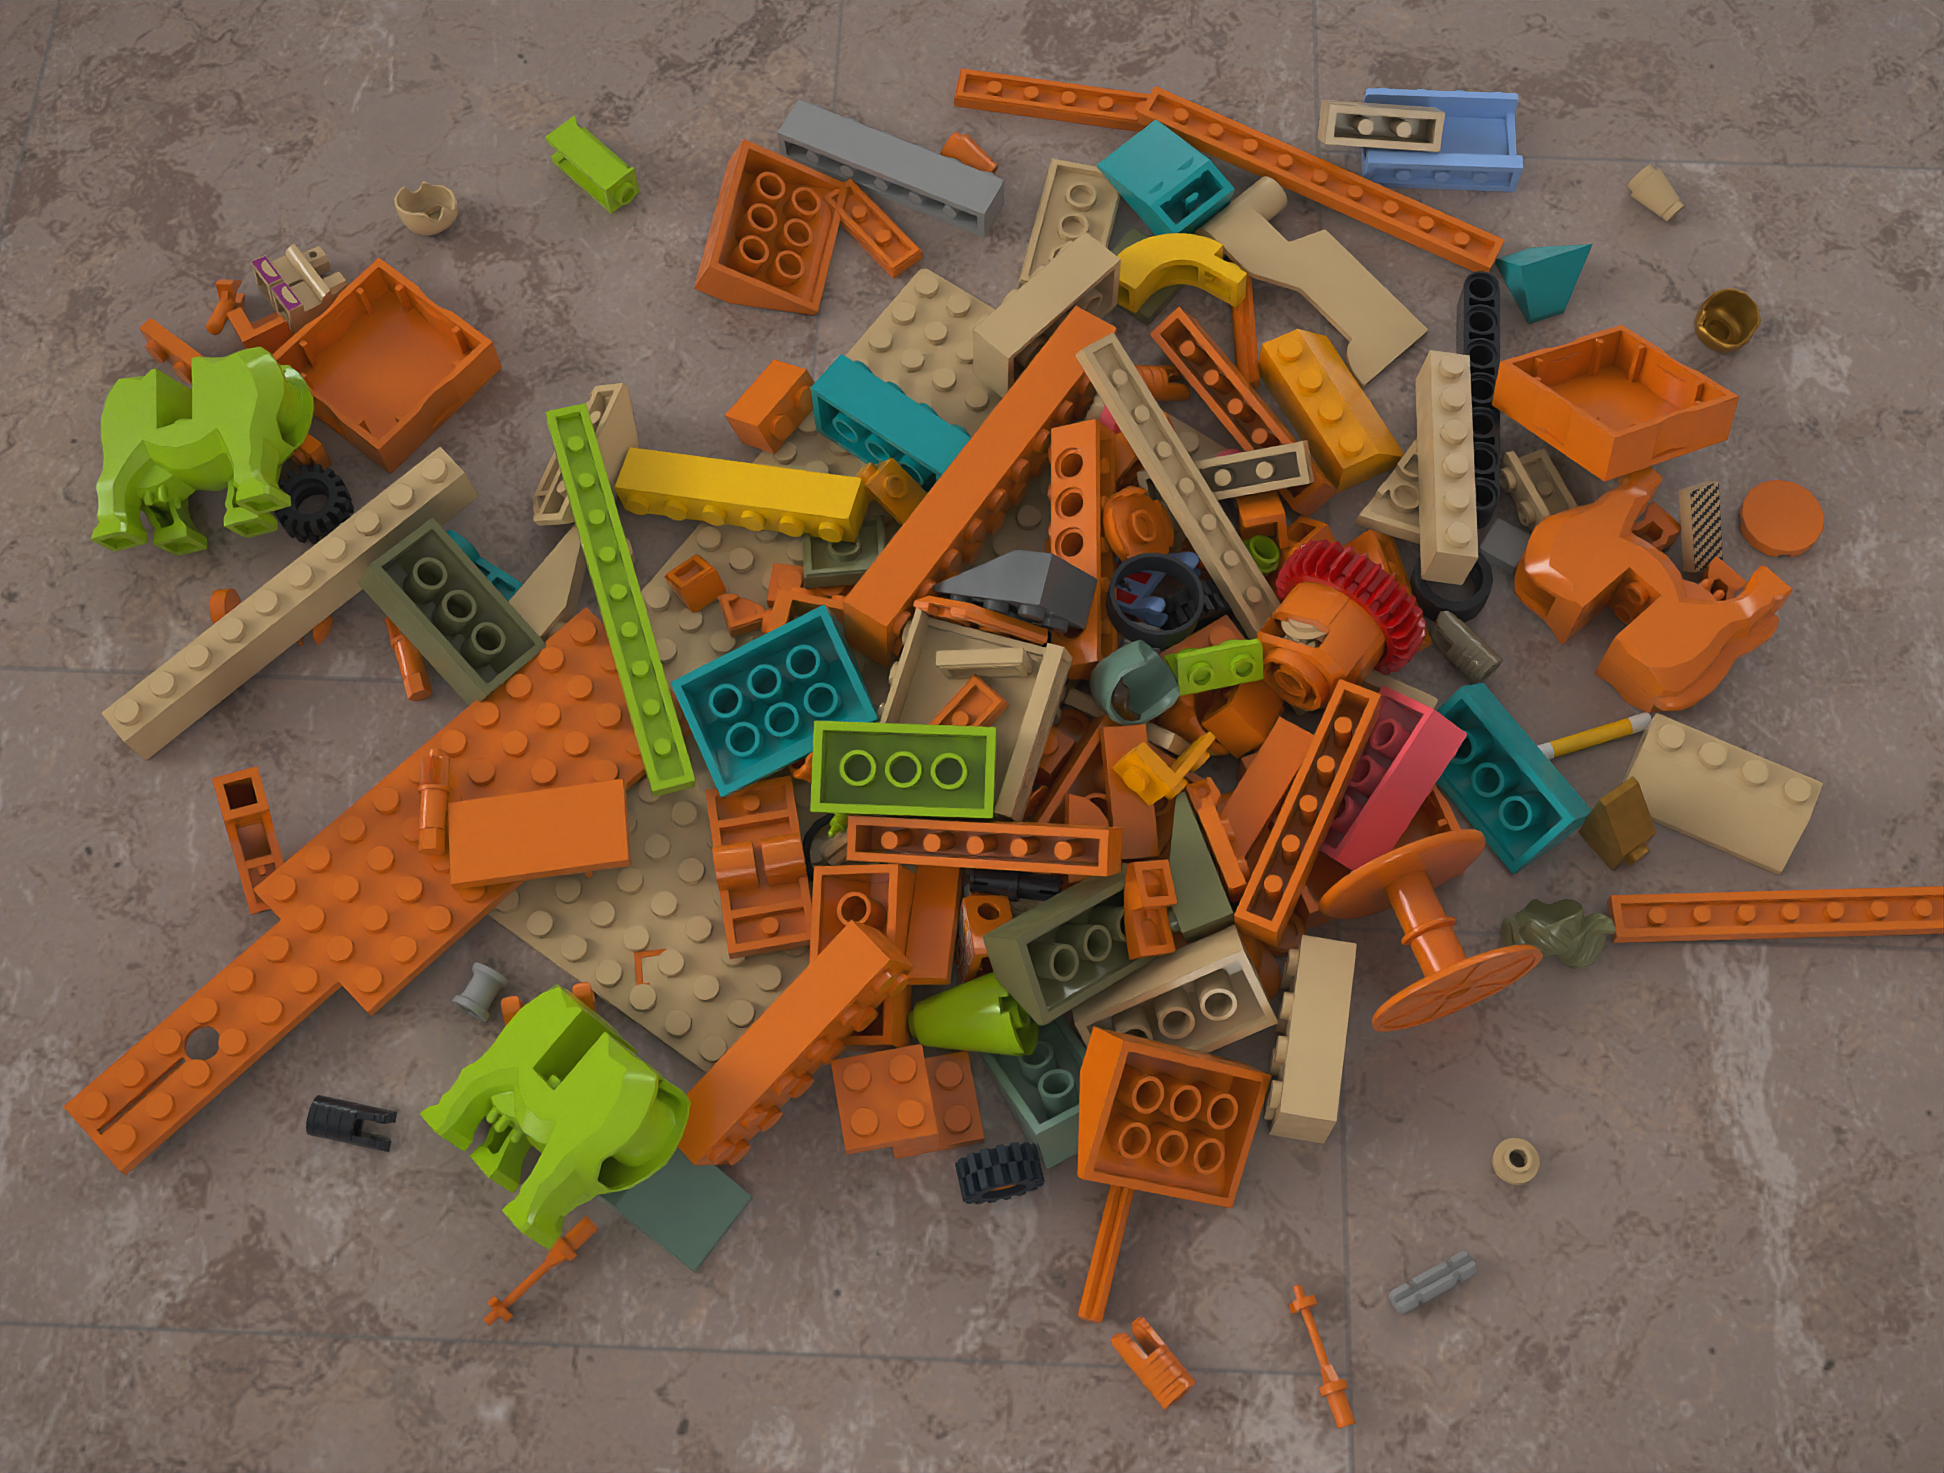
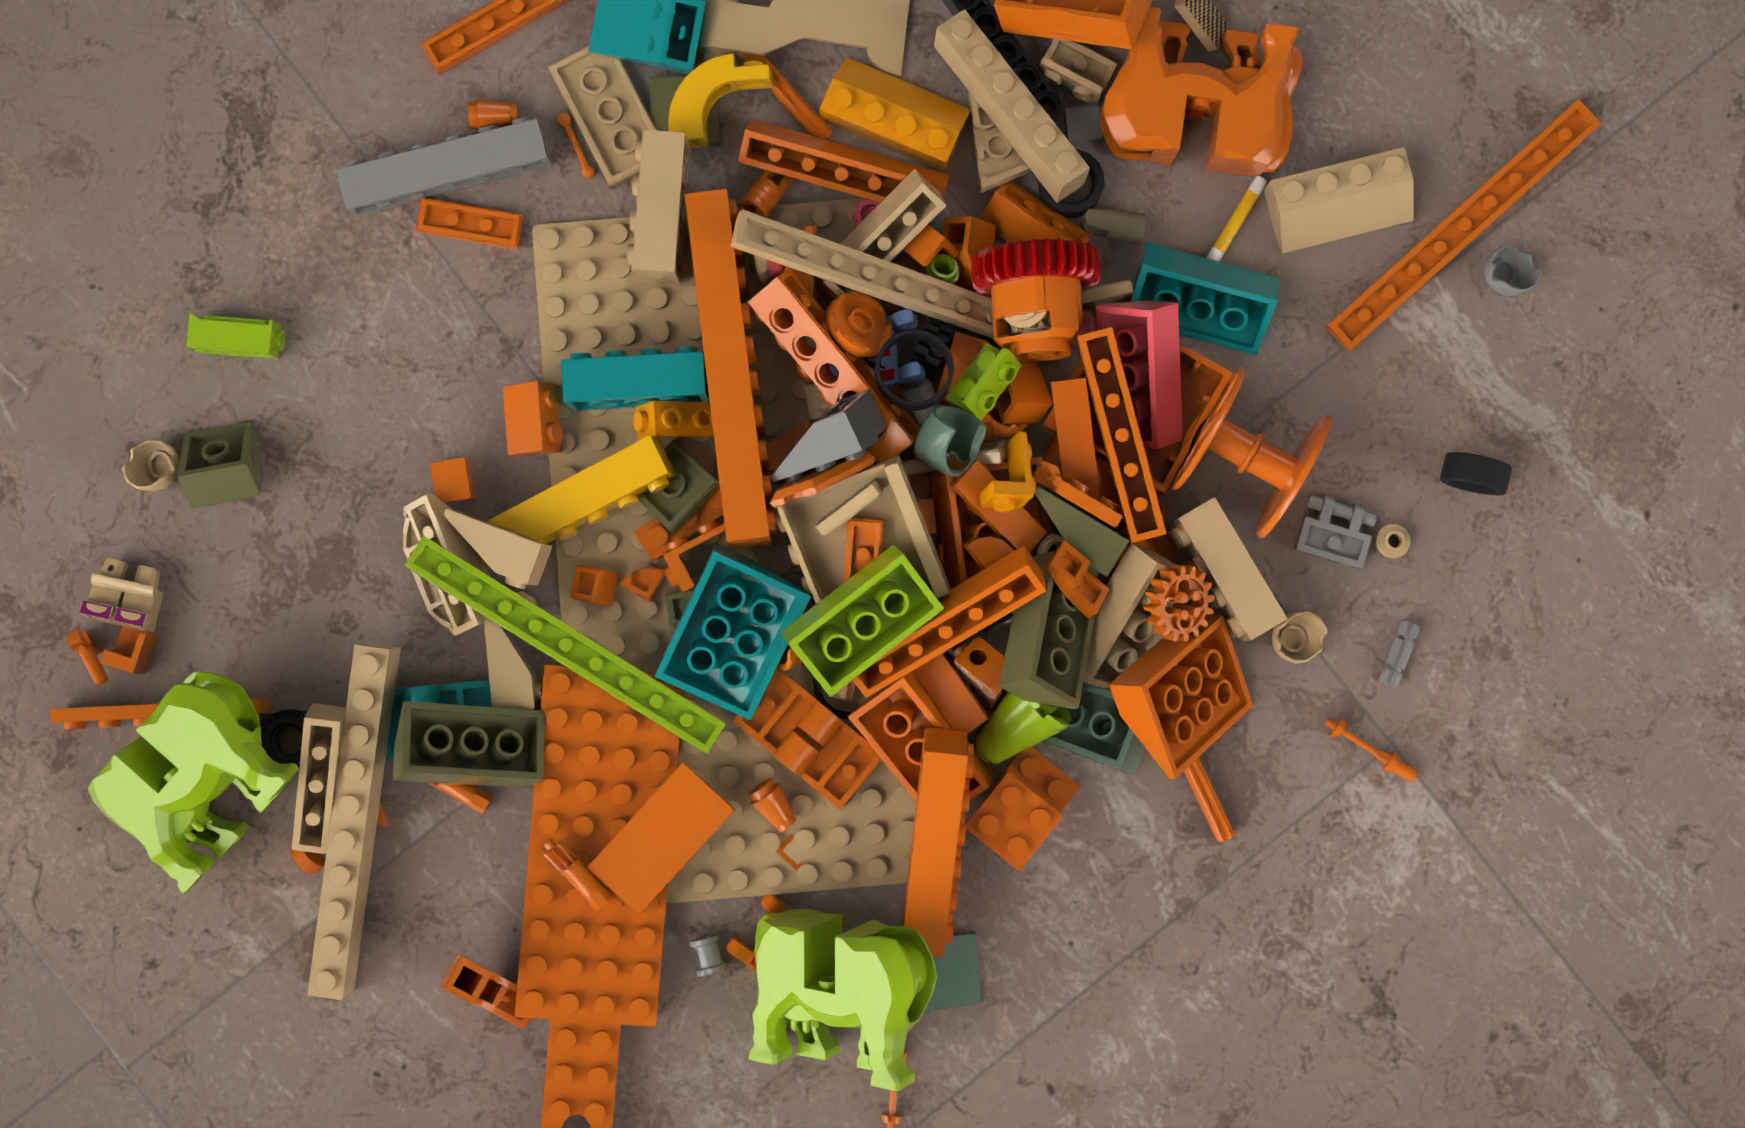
camera: 45 degrees left, 20 degrees up
(303, 525) = (317, 777): none -> tan brick
(344, 1122) = (700, 1098): black hinge -> none
(388, 364) = (240, 605): orange tile -> none
(479, 250) = (220, 465): none -> olive slope
(643, 477) = (503, 550): none -> tan slope
(661, 403) = (453, 480): none -> orange panel
(670, 898) = (772, 804): none -> orange cone
(770, 233) = (408, 288): orange slope -> none
(999, 1173) = (1112, 803): black bush -> none
(1028, 211) = (565, 122): none -> orange hinge
(1161, 1370) = (1289, 836): orange hinge -> none
(1238, 1037) = (1181, 619): none -> orange gear
(1336, 1170) = (1299, 637): none -> tan hair
(1451, 1111) = (1331, 541): none -> light grey plate
(1559, 931) = (1312, 375): olive hair -> none
(1620, 826) = (1302, 275): pearl gold slope -> none
(1660, 1155) = (1475, 473): none -> black tyre
(1851, 991) = (1511, 271): none -> light grey hair

